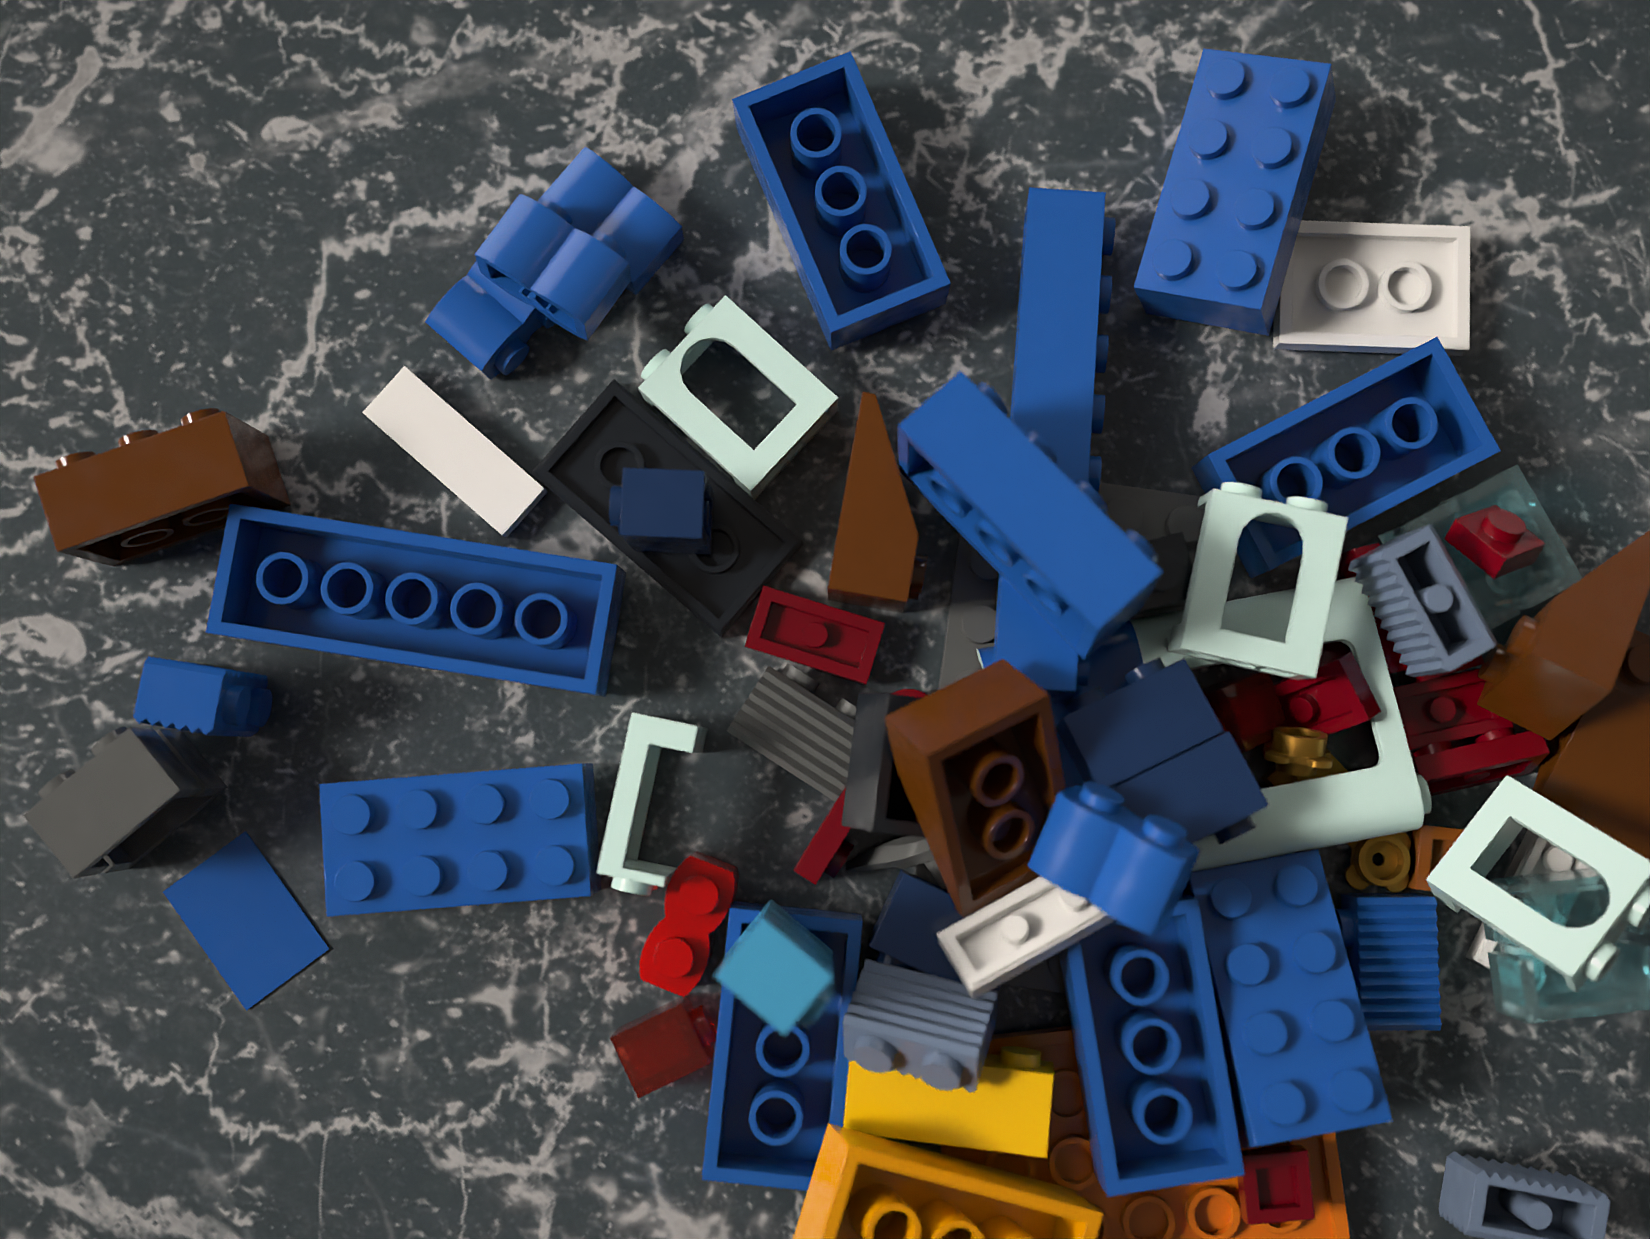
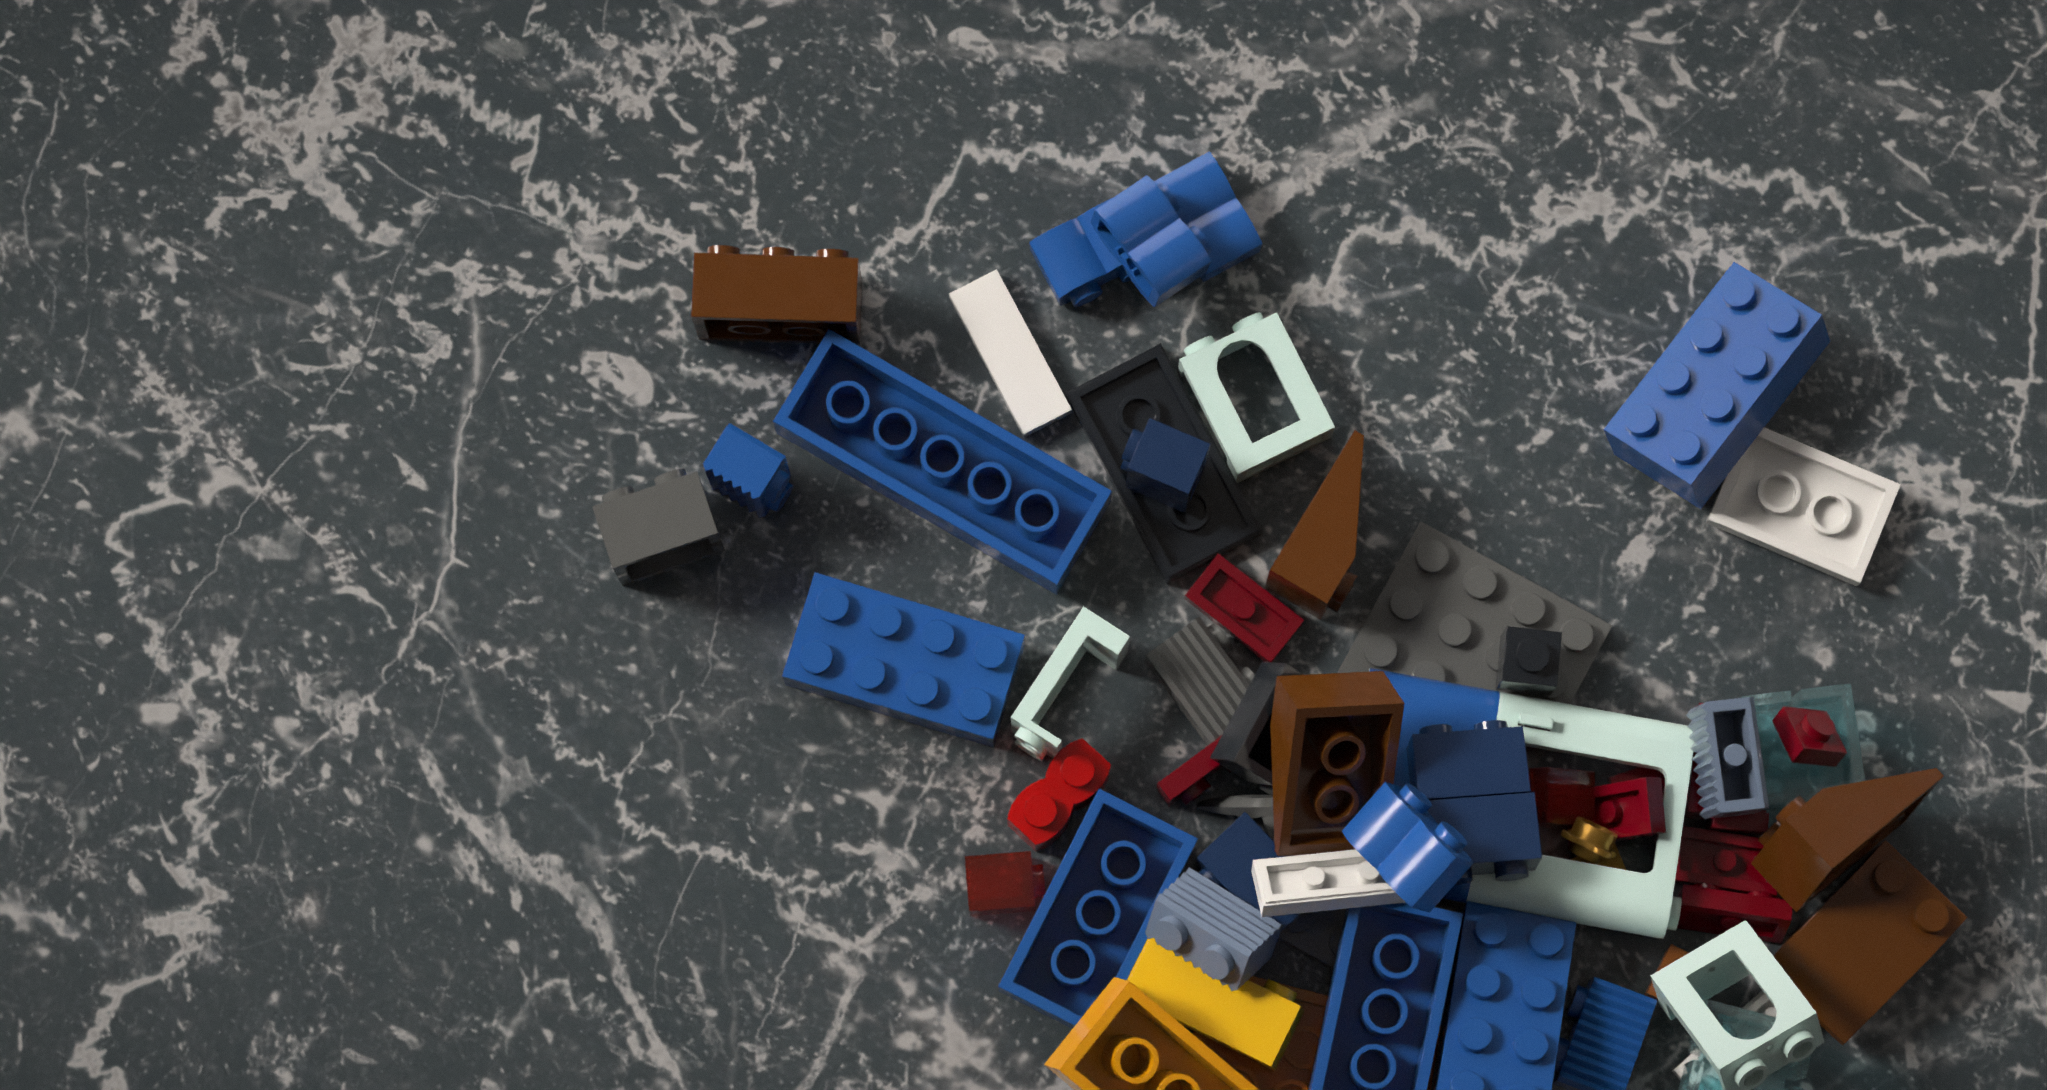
camera: 20 degrees right, 5 degrees down
(246, 920) = (700, 662): blue sticker -> none
(780, 970) = (1128, 828): dark azure brick -> none
(841, 200) = (1397, 273): blue brick -> none
(1026, 513) = (1440, 569): blue brick -> none
(1055, 392) = (1492, 519): blue brick -> none
(1222, 525) = (1664, 675): light aqua panel -> none
(1355, 449) = (1721, 629): blue brick -> none
(1390, 873) = (1625, 946): pearl gold plate -> none

